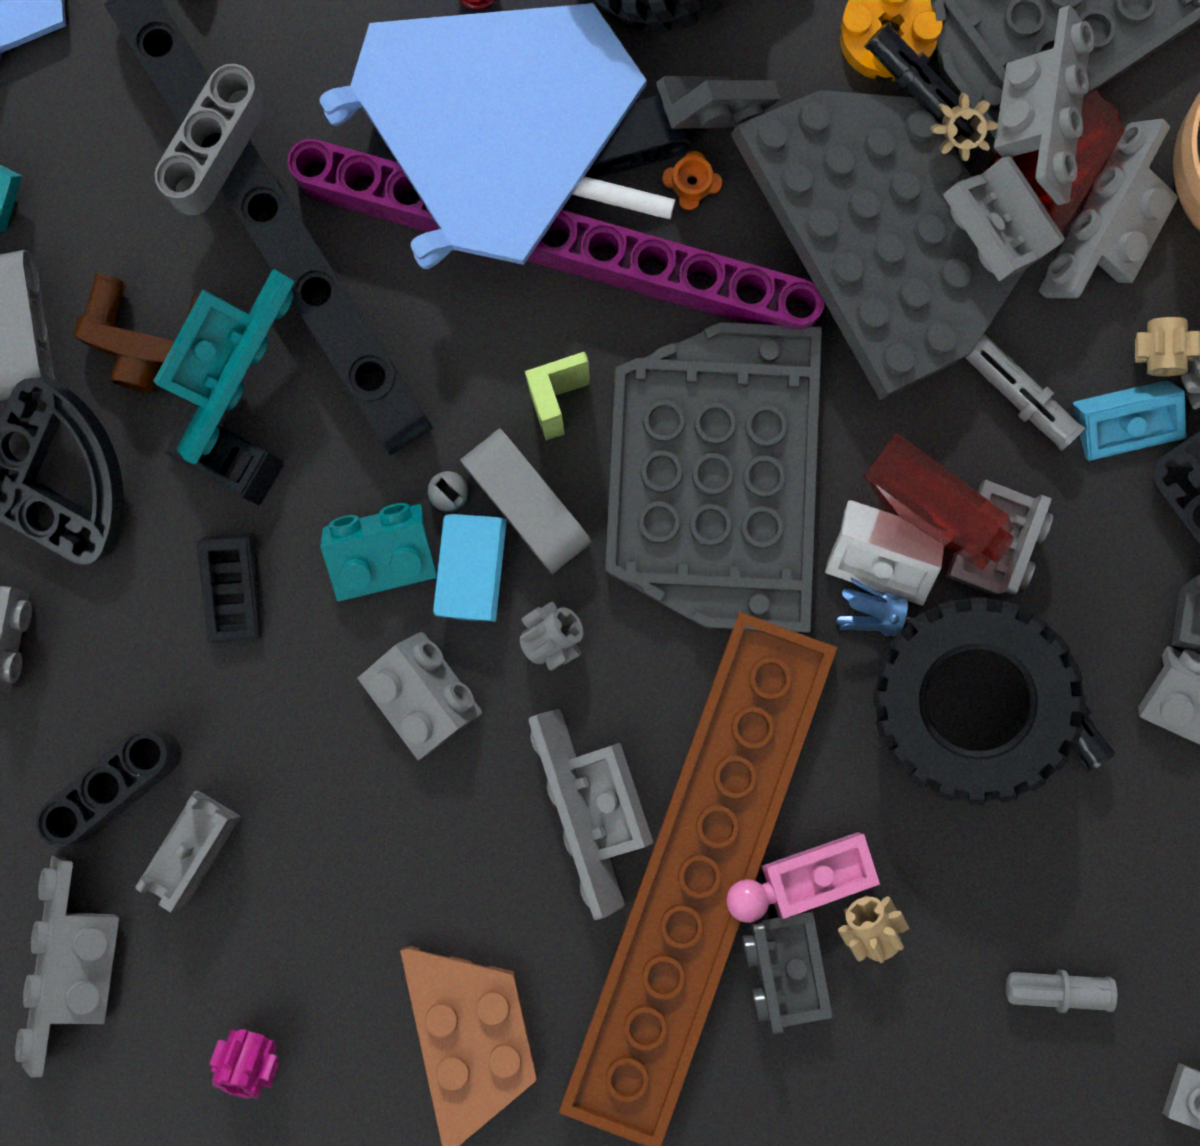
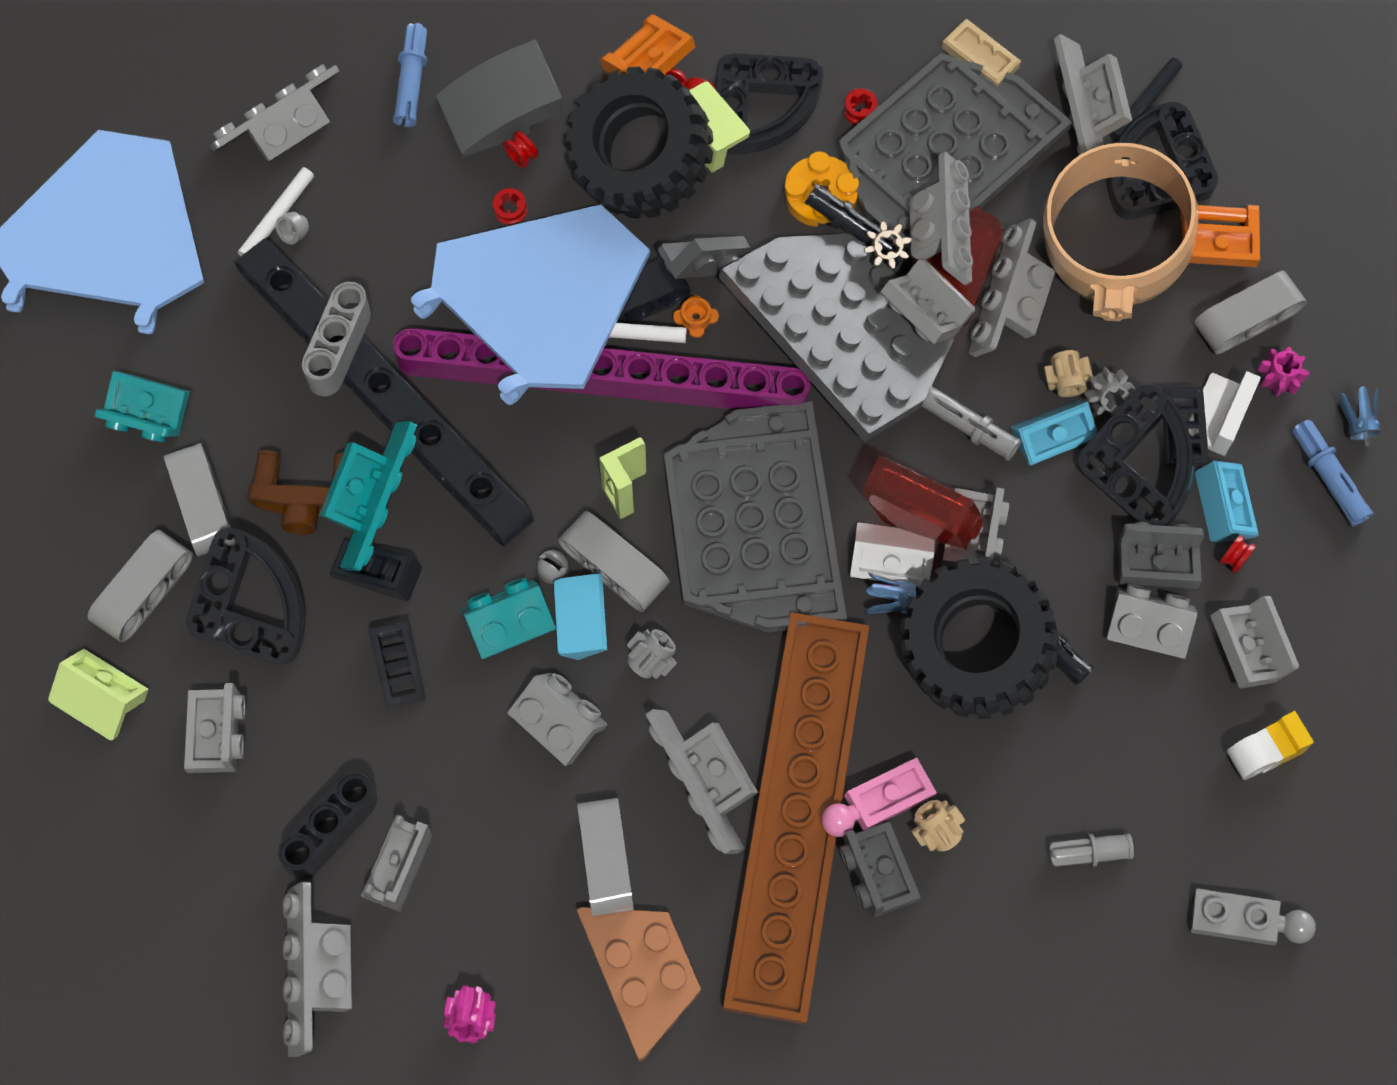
camera: 15 degrees left, 15 degrees down
(445, 894) = (605, 857): none -> light grey beam

